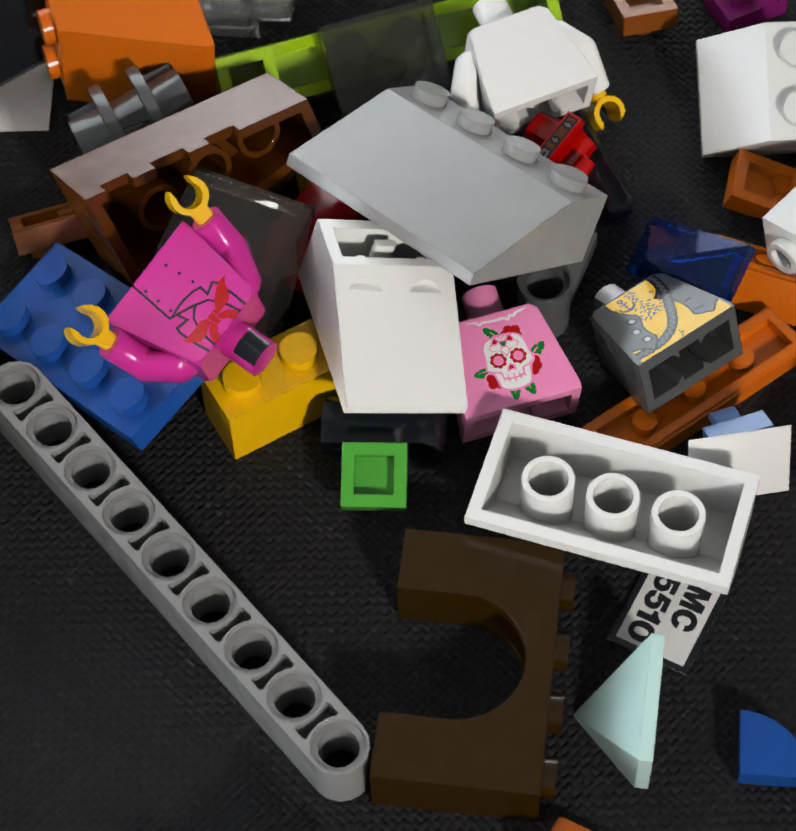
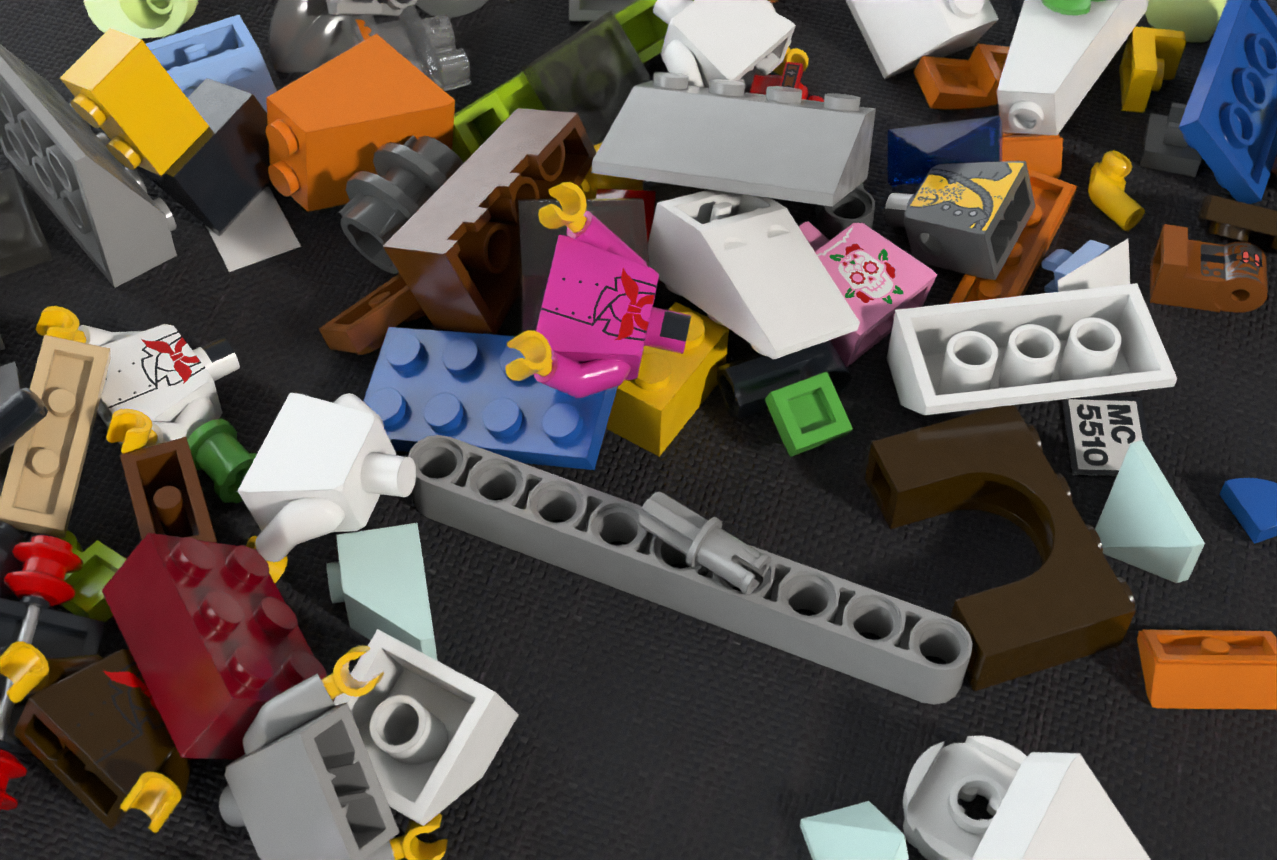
camera: 30 degrees left, 5 degrees down
(180, 560) = (703, 541): none -> light grey axle

